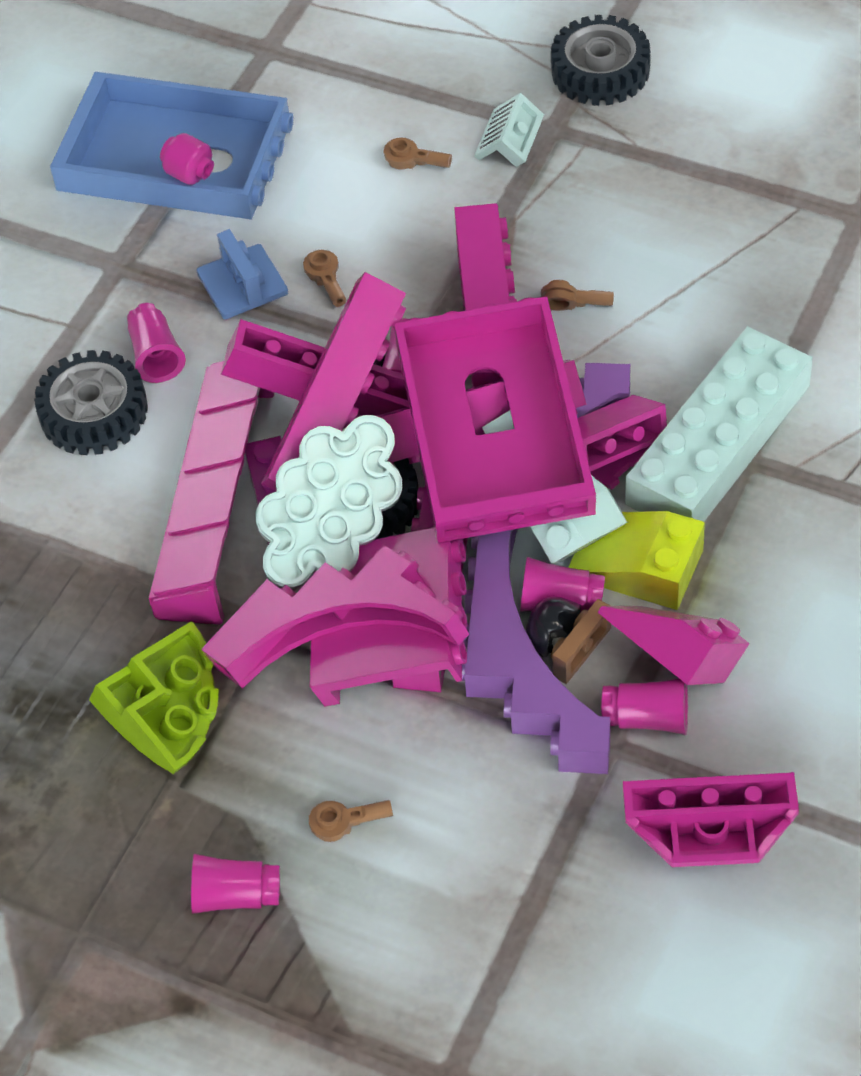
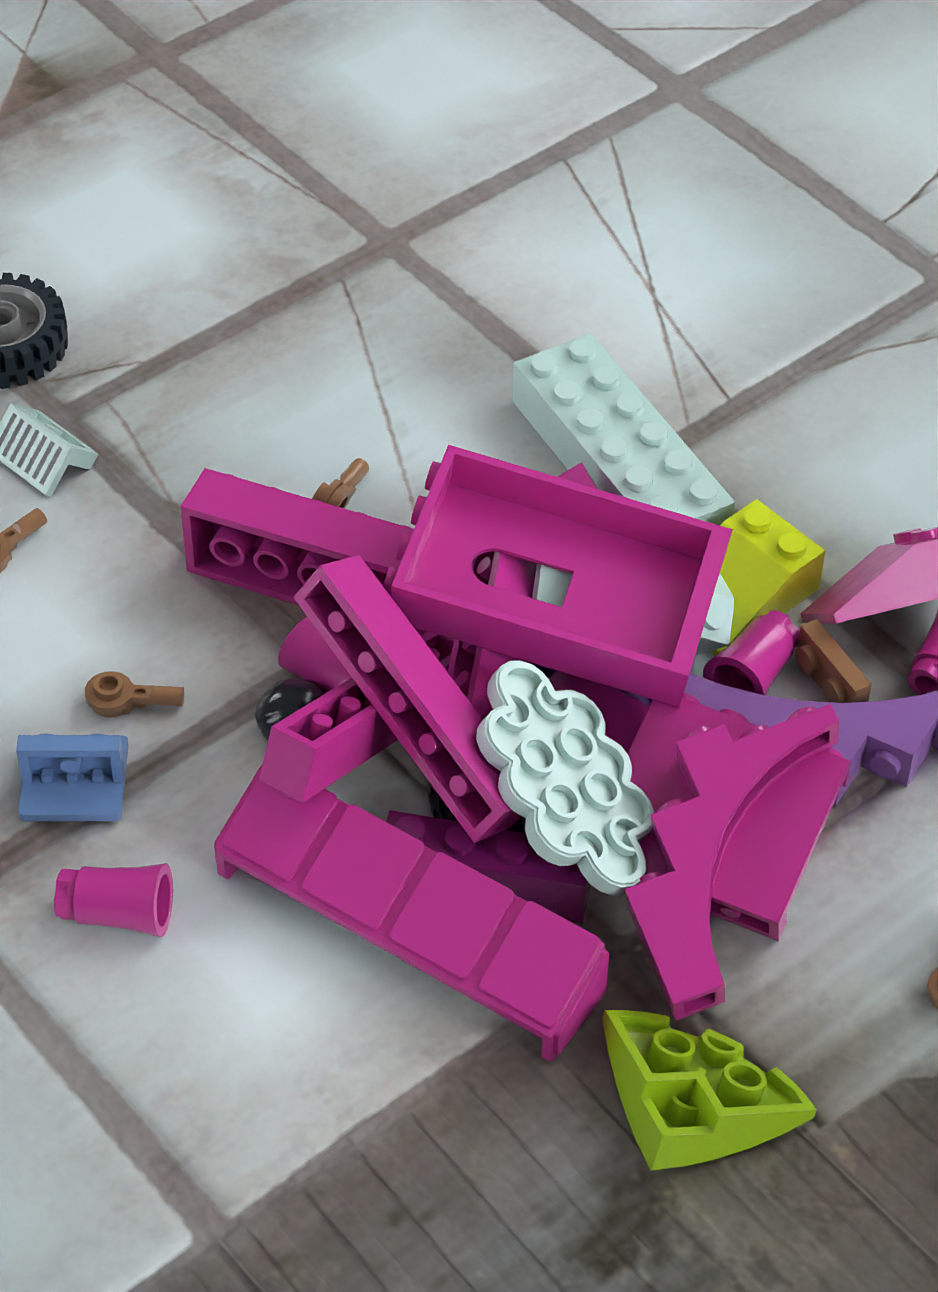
camera: 70 degrees left, 5 degrees down
(91, 402) = (170, 1036): wheel -> none
(550, 620) = (805, 675): black hair -> none

